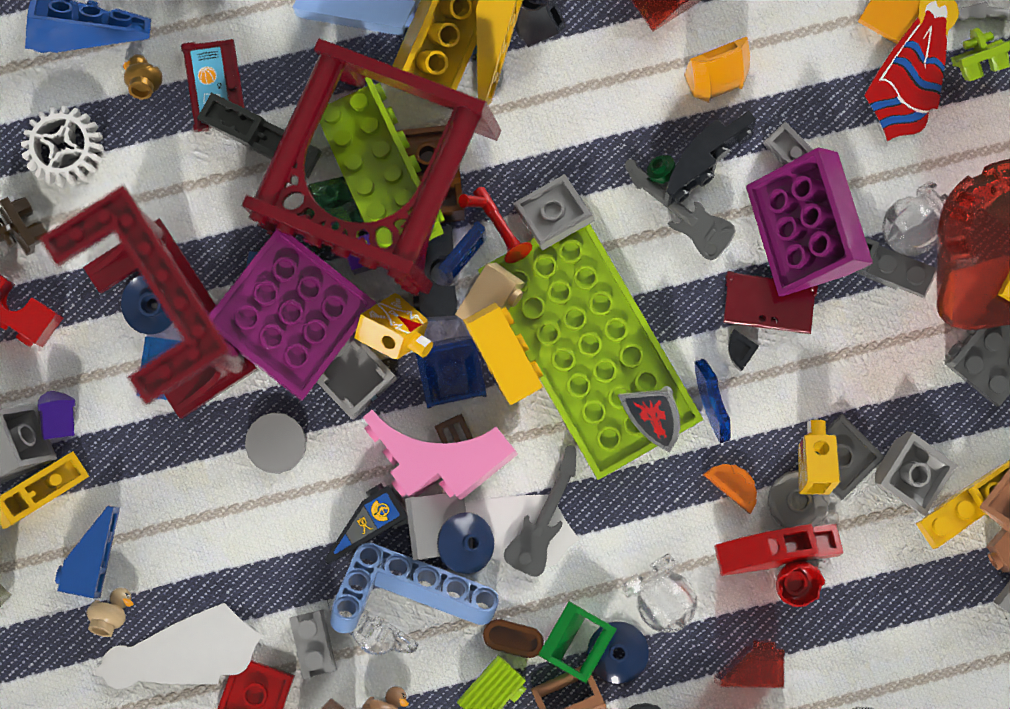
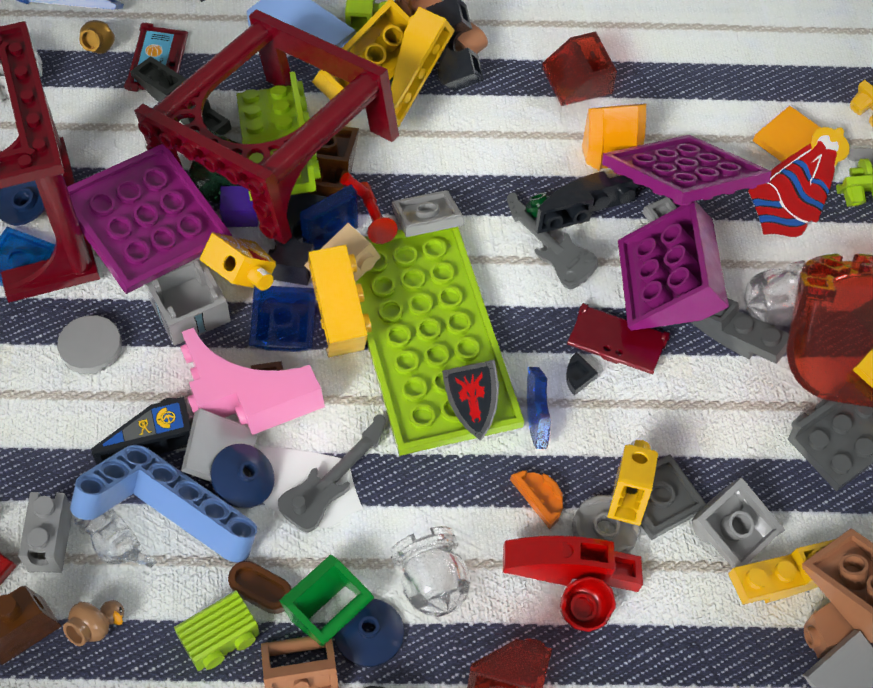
camera: 10 degrees right, 25 degrees down
(801, 101) = (686, 169): none -> magenta plate

